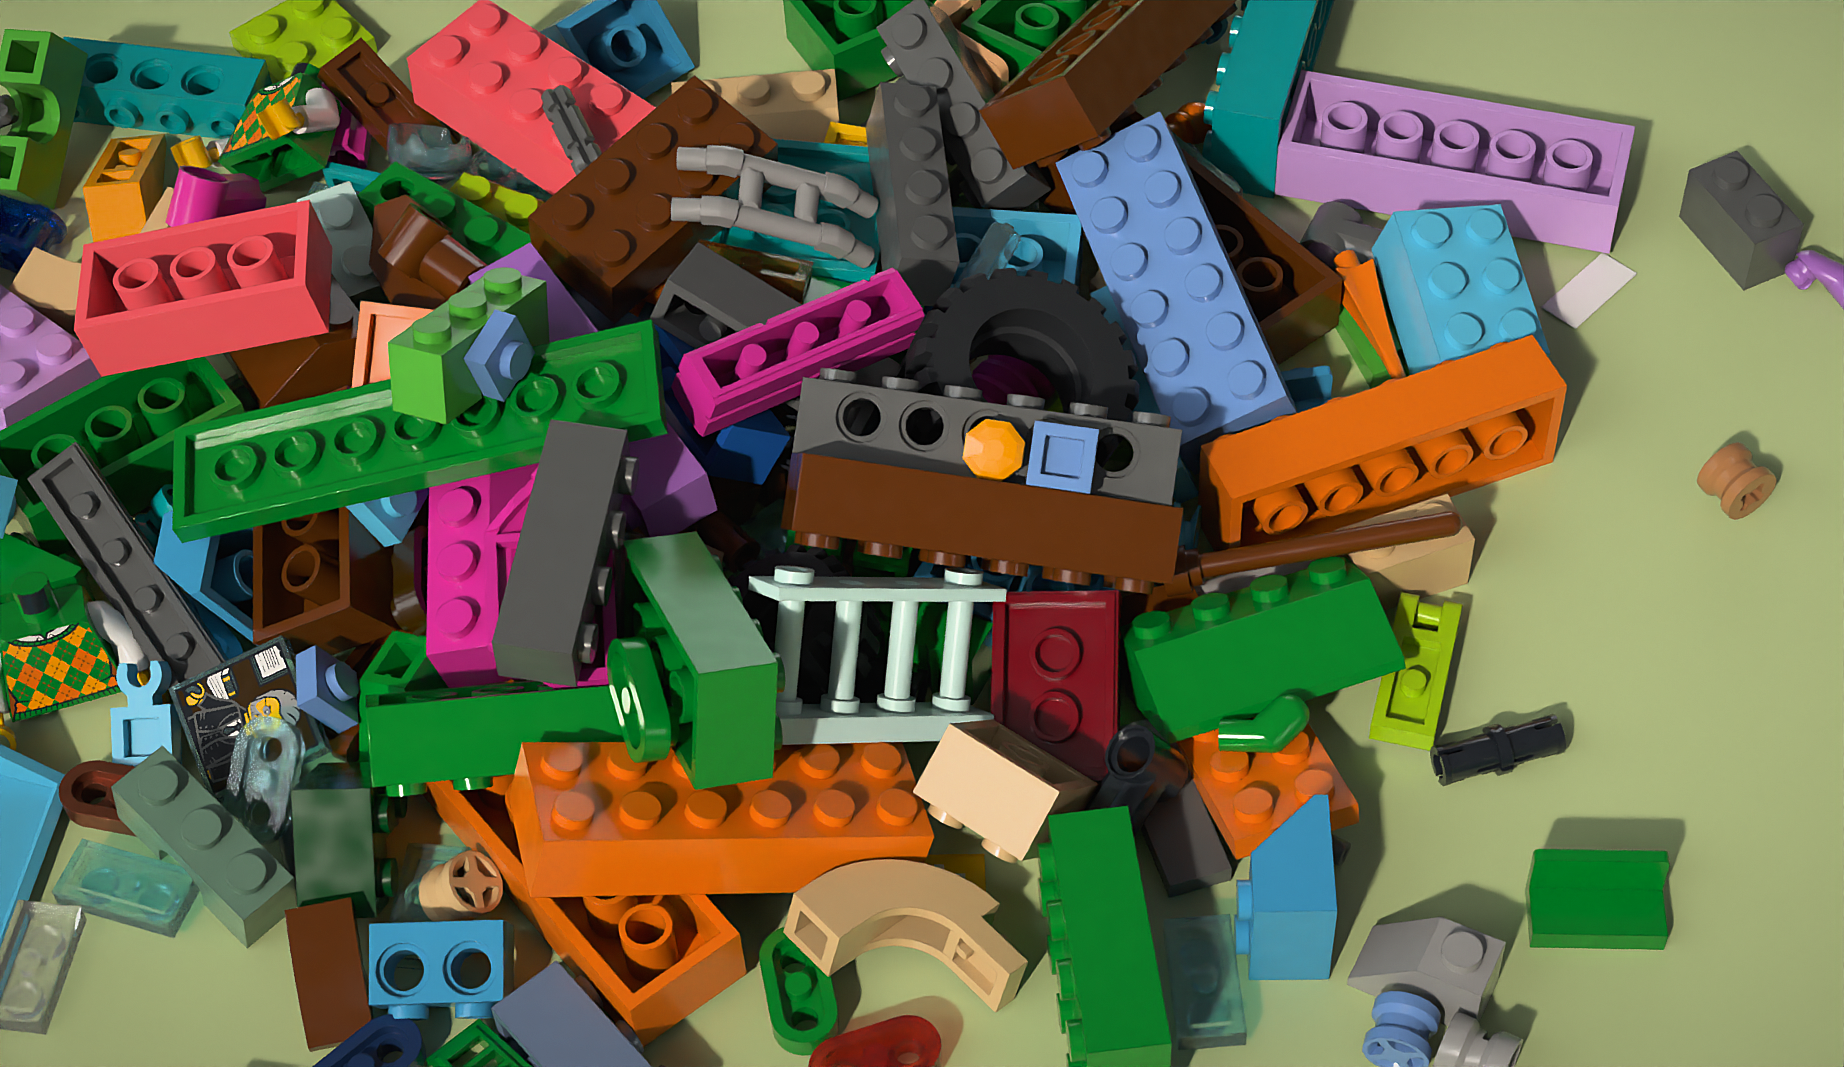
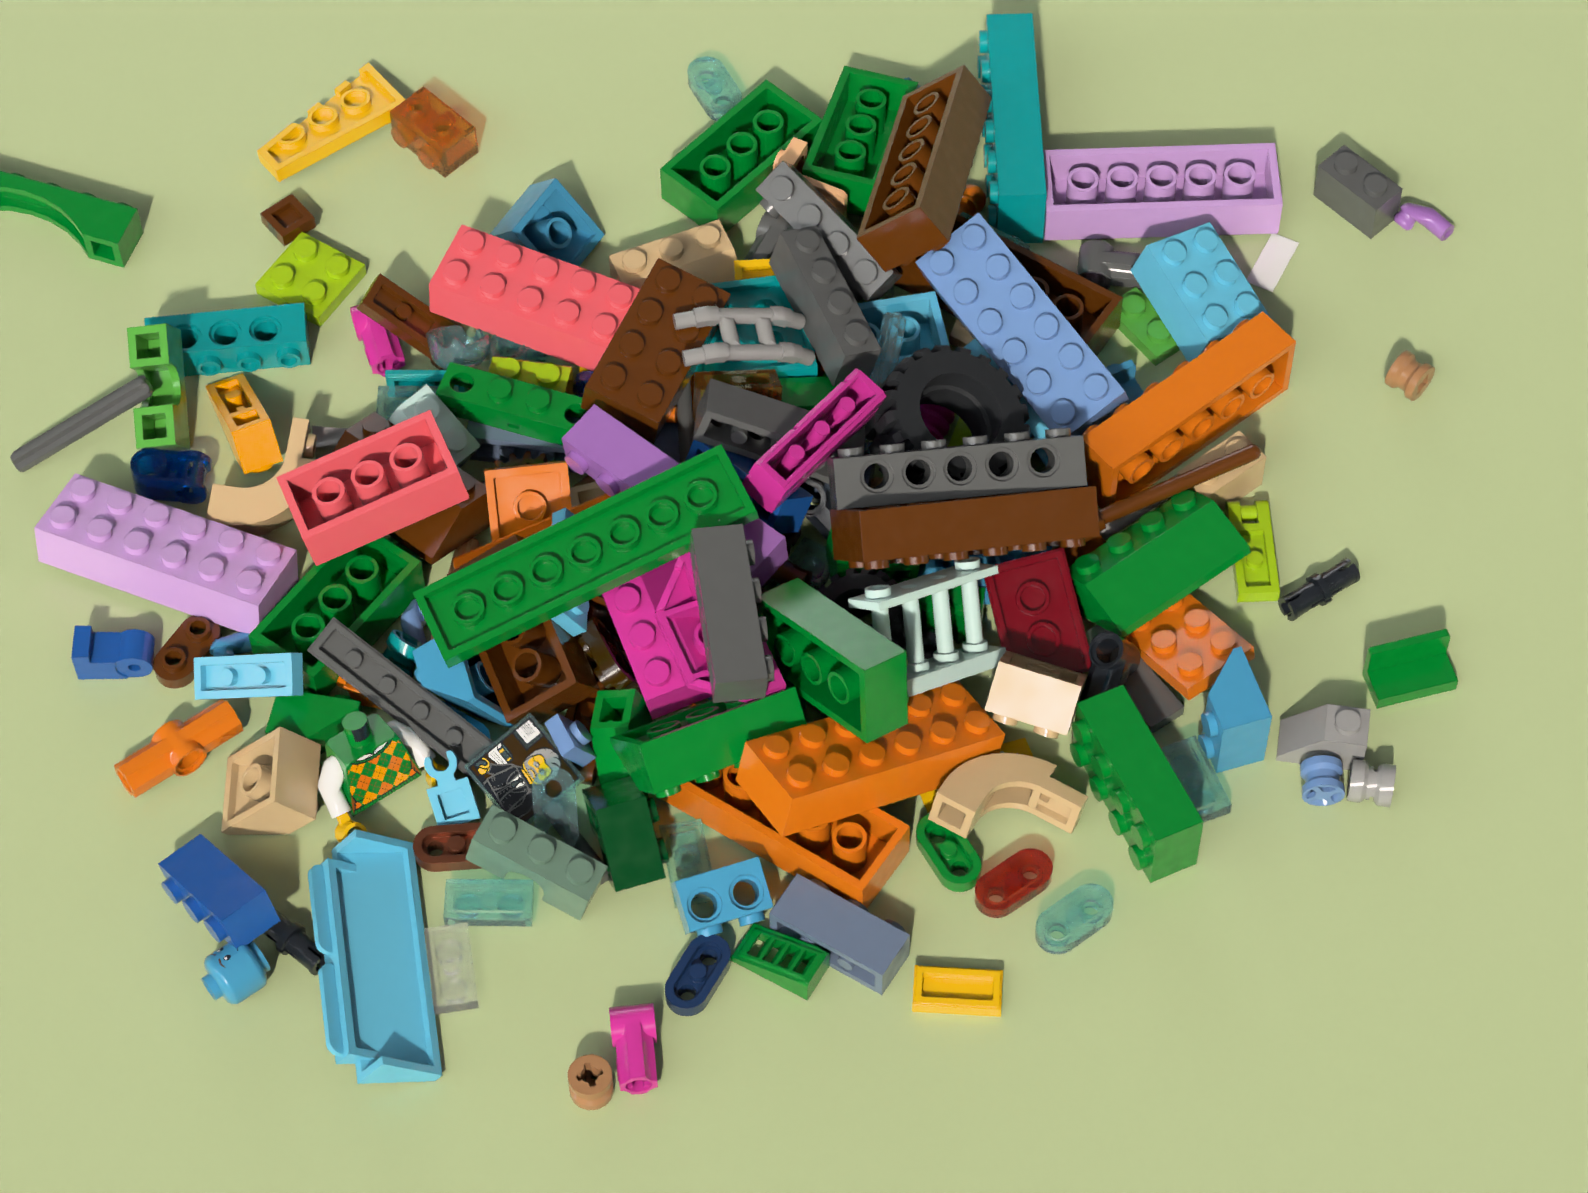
camera: 20 degrees left, 5 degrees up
(210, 195) = (328, 421): dark pink piece -> none
(279, 135) = (340, 357): torso -> none
(328, 971) = (651, 919): reddish brown slope -> none
(417, 256) = (505, 431): reddish brown panel -> none
(428, 357) = (599, 491): bright green arch -> none
(465, 873) = (714, 845): tan wheel -> none
(499, 355) = (635, 493): medium blue plate -> none
(570, 127) = (576, 314): dark grey axle -> none
(637, 693) = (810, 695): green plate -> none
(994, 450) = (970, 478): light orange tile -> none
(1062, 457) = (1015, 472): medium blue plate -> none
(1269, 730) = (1184, 614): green arm -> none
(1365, 304) = (1138, 309): orange piece -> none

